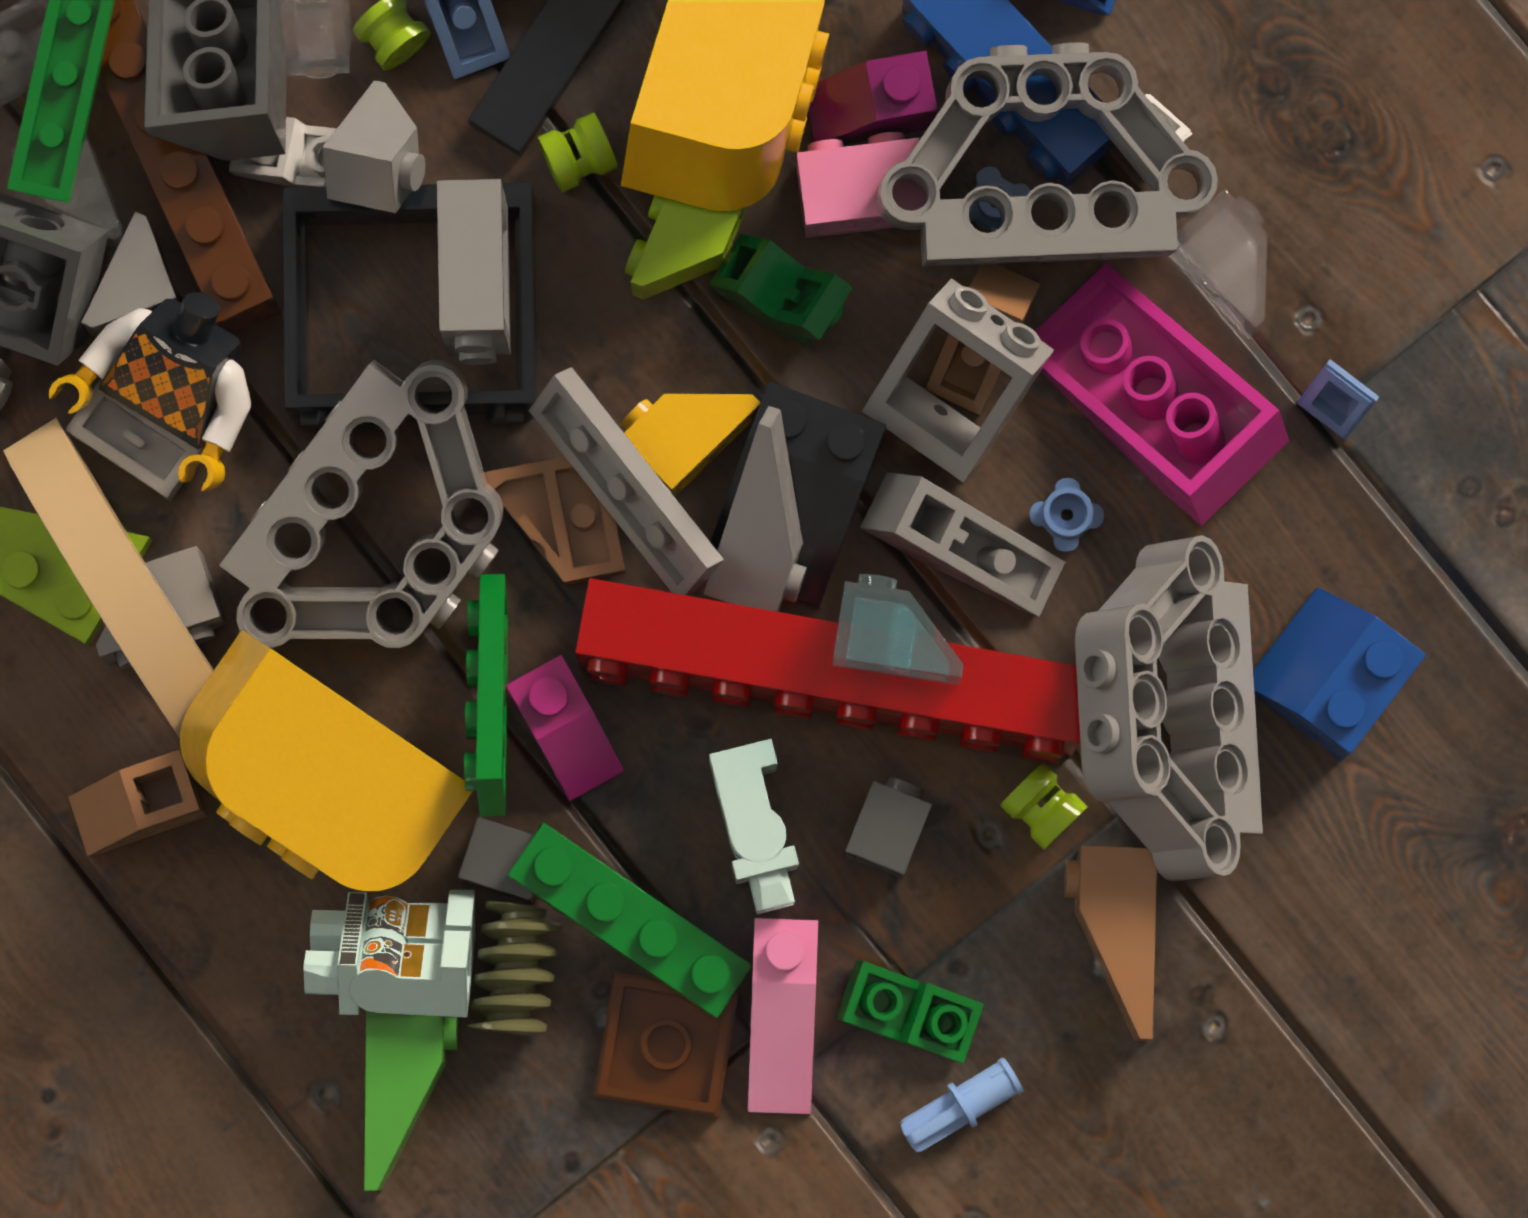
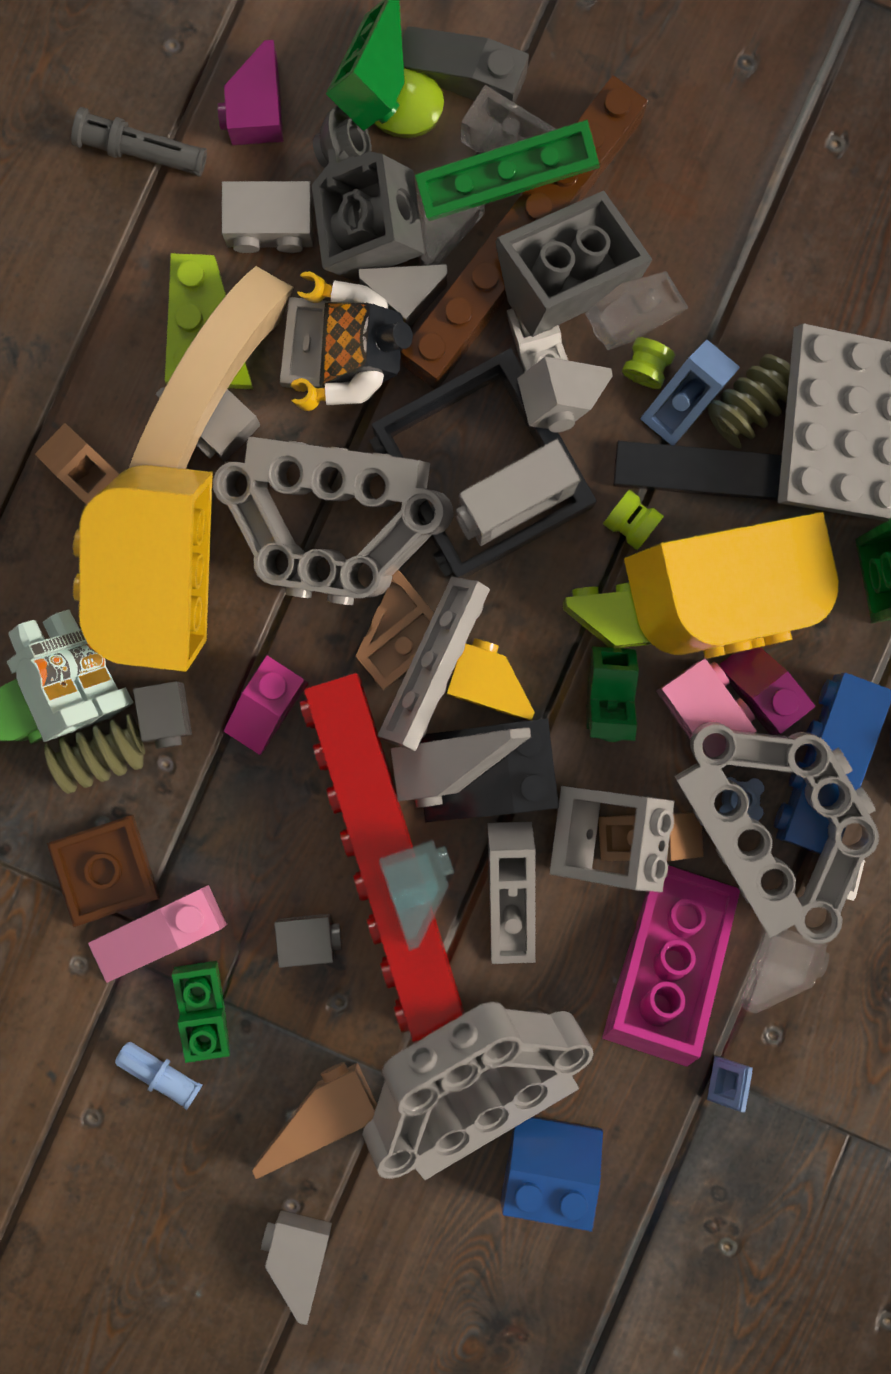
camera: 60 degrees right, 5 degrees up
(488, 715) = (237, 655): green plate -> none
(628, 920) = (161, 809): green plate -> none
(751, 826) = (260, 856): light aqua hips -> none
(1051, 819) = (371, 1031): lime wheel -> none
(1066, 497) = (569, 960): medium blue plate -> none
(1280, 1045) = (295, 1259): none -> light grey slope

